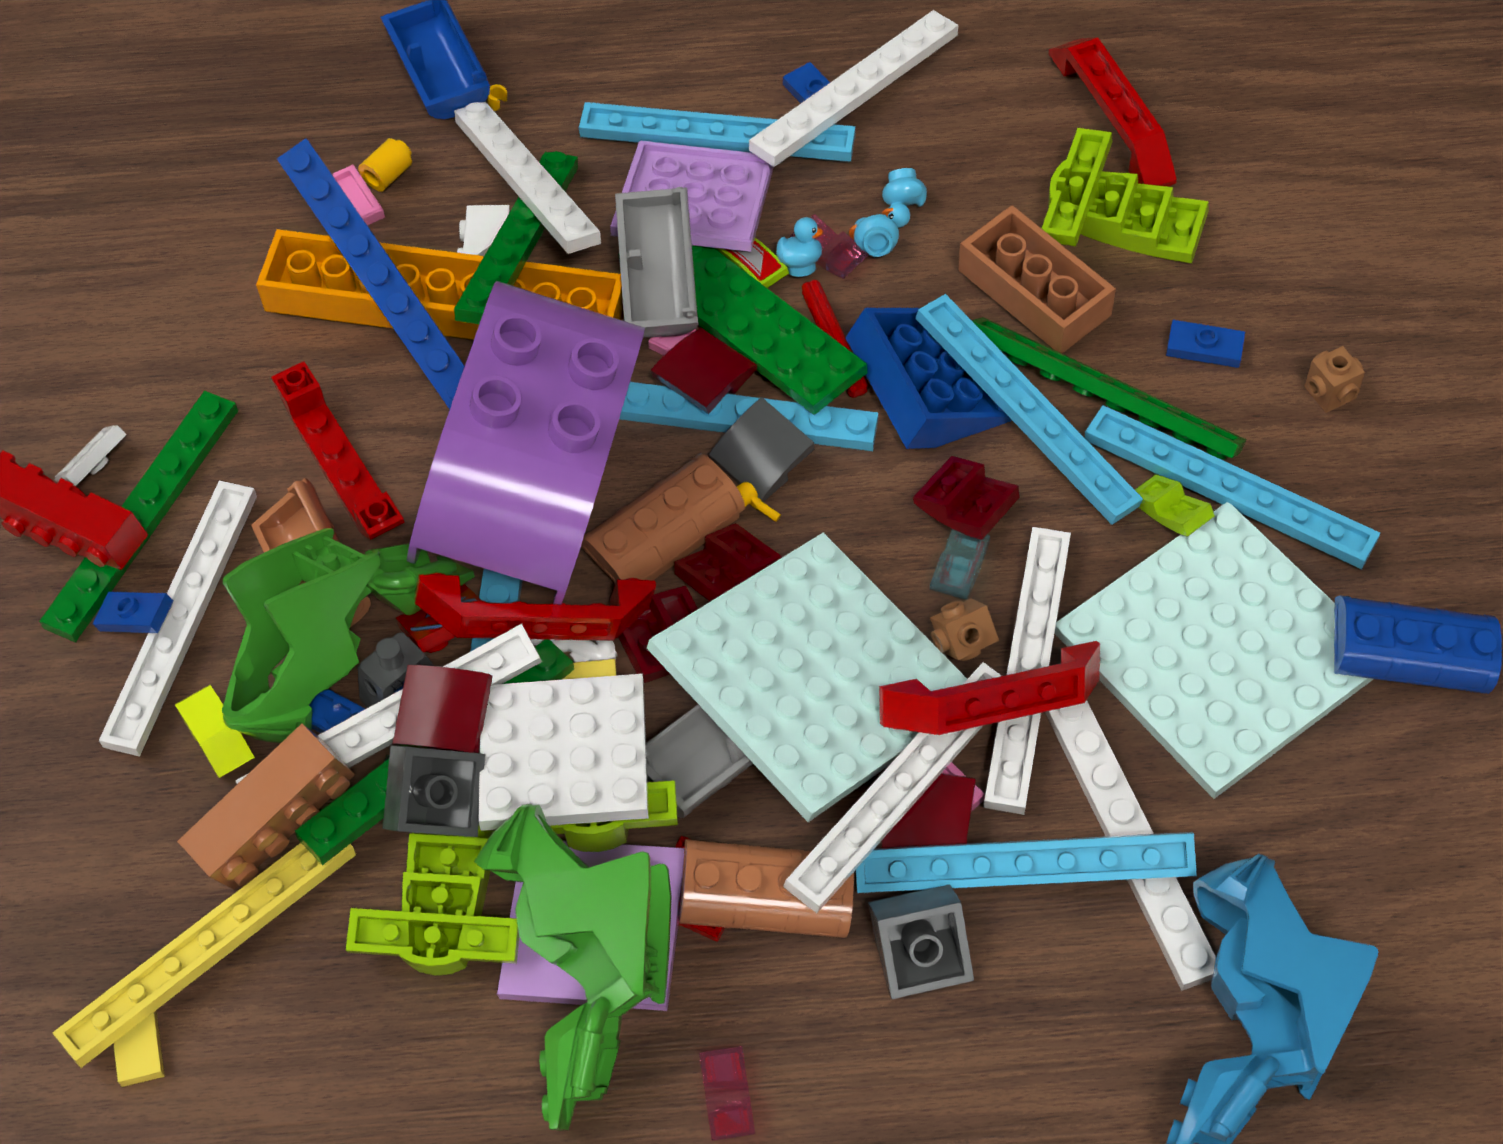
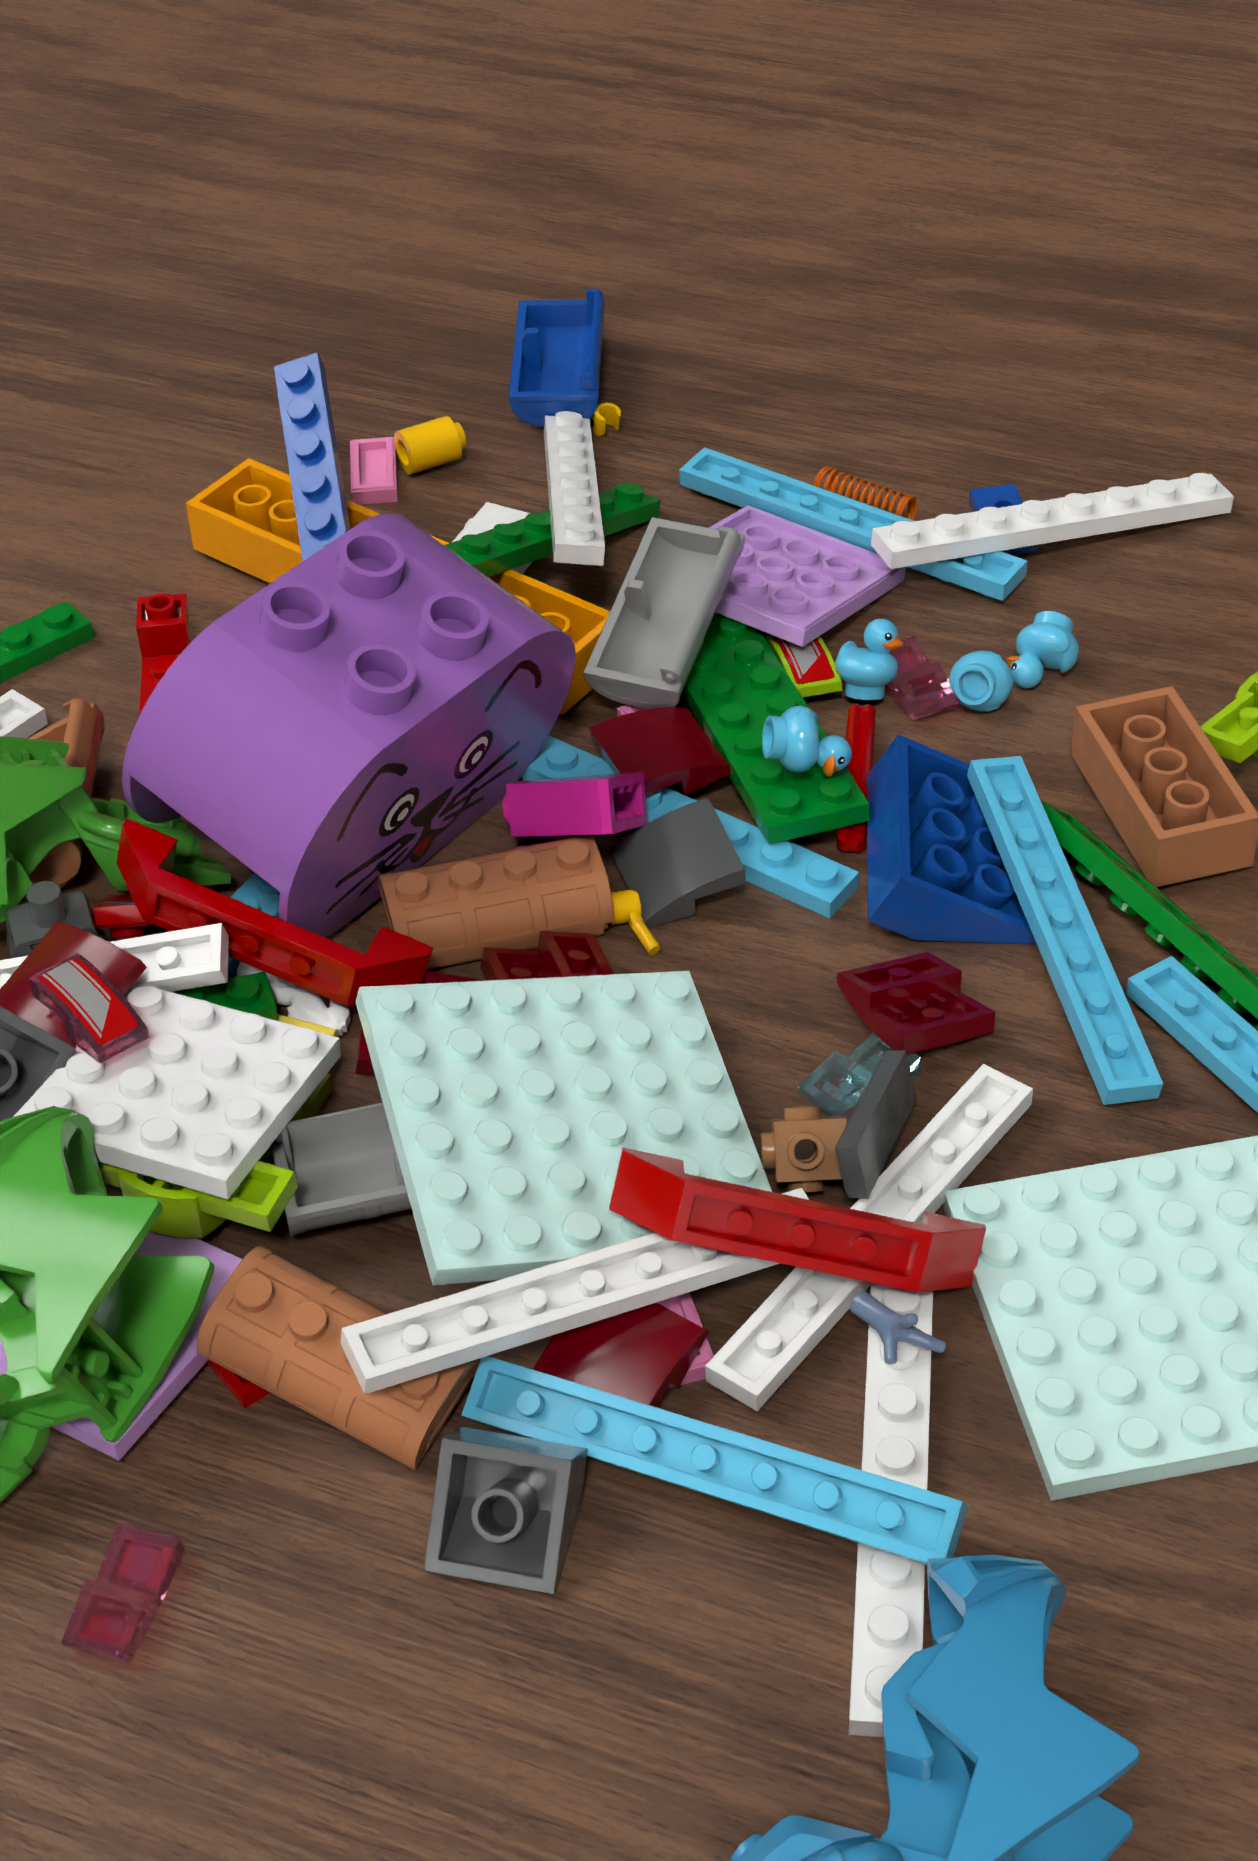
camera: 25 degrees right, 15 degrees down
(486, 724) = (91, 1006): none -> slope
(679, 436) = (576, 805): none -> dark pink slope
(683, 104) = (831, 484): none -> orange piece
(806, 338) = (797, 745): none -> medium azure animal
(996, 596) = (876, 1124): none -> dark grey tile
(1080, 731) = (892, 1326): none -> sand blue bar
(1168, 505) = (1202, 1108): lime slope -> none

